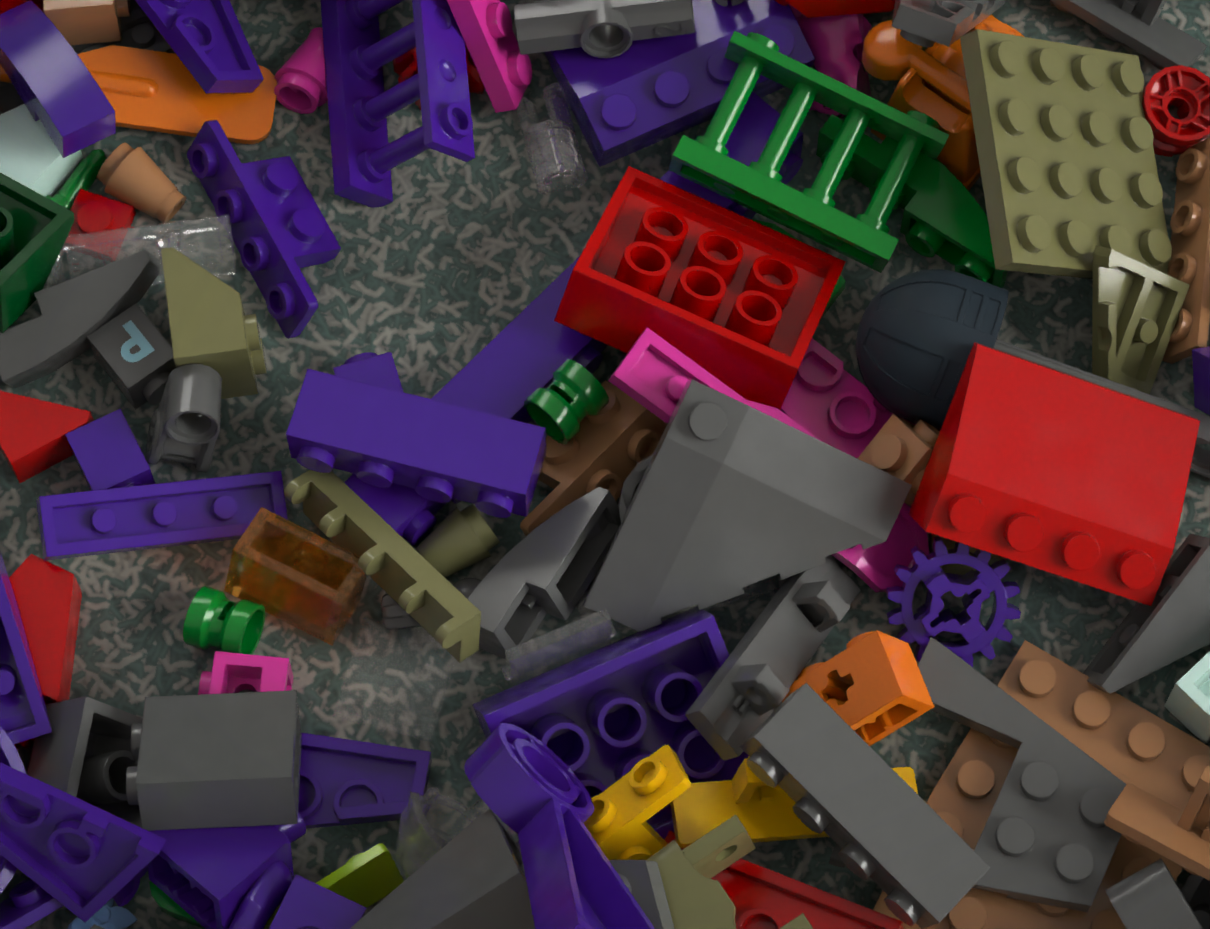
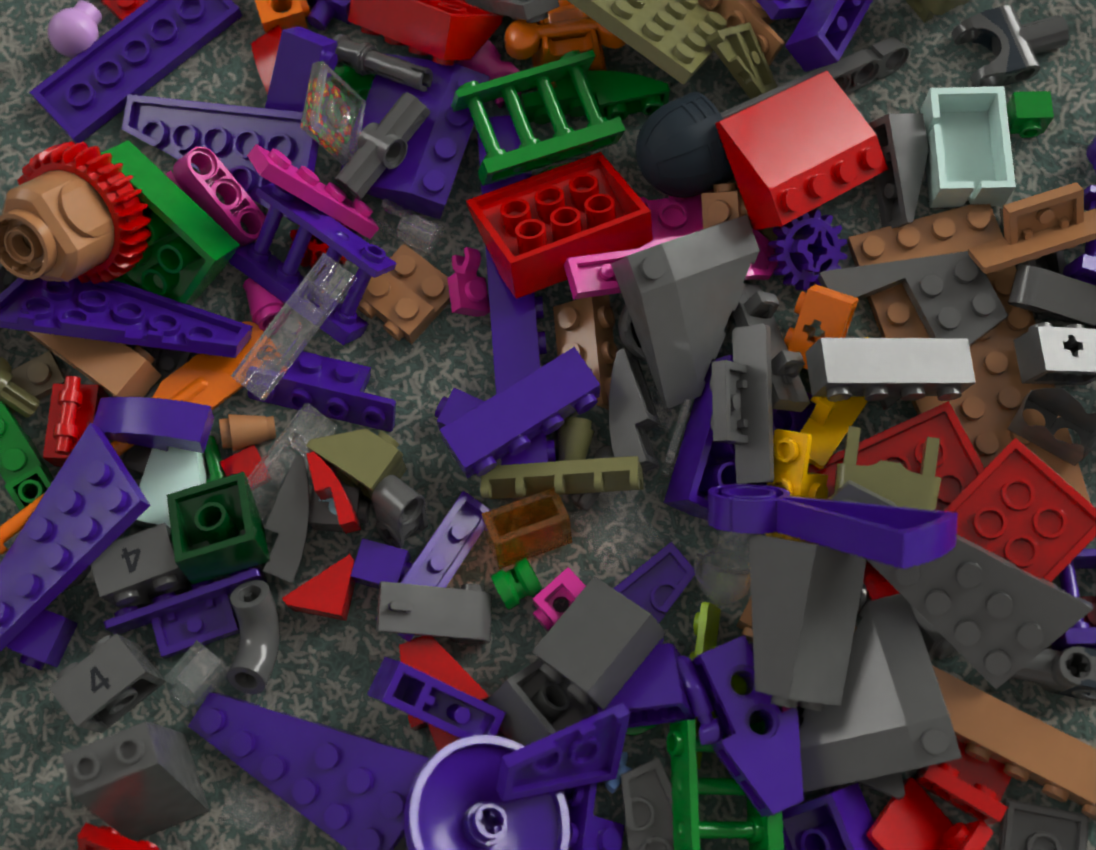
camera: 45 degrees left, 5 degrees up
(105, 560) = (436, 611): none -> dark grey door
(144, 318) = (328, 486): none -> red slope
(296, 119) = (293, 327): none -> clear hinge
(466, 210) = (406, 296): none -> medium nougat plate
(537, 262) = (466, 289): none -> dark pink plate
(566, 401) = (557, 329): green wheel -> none
(656, 675) = (744, 404): none -> dark grey bracket

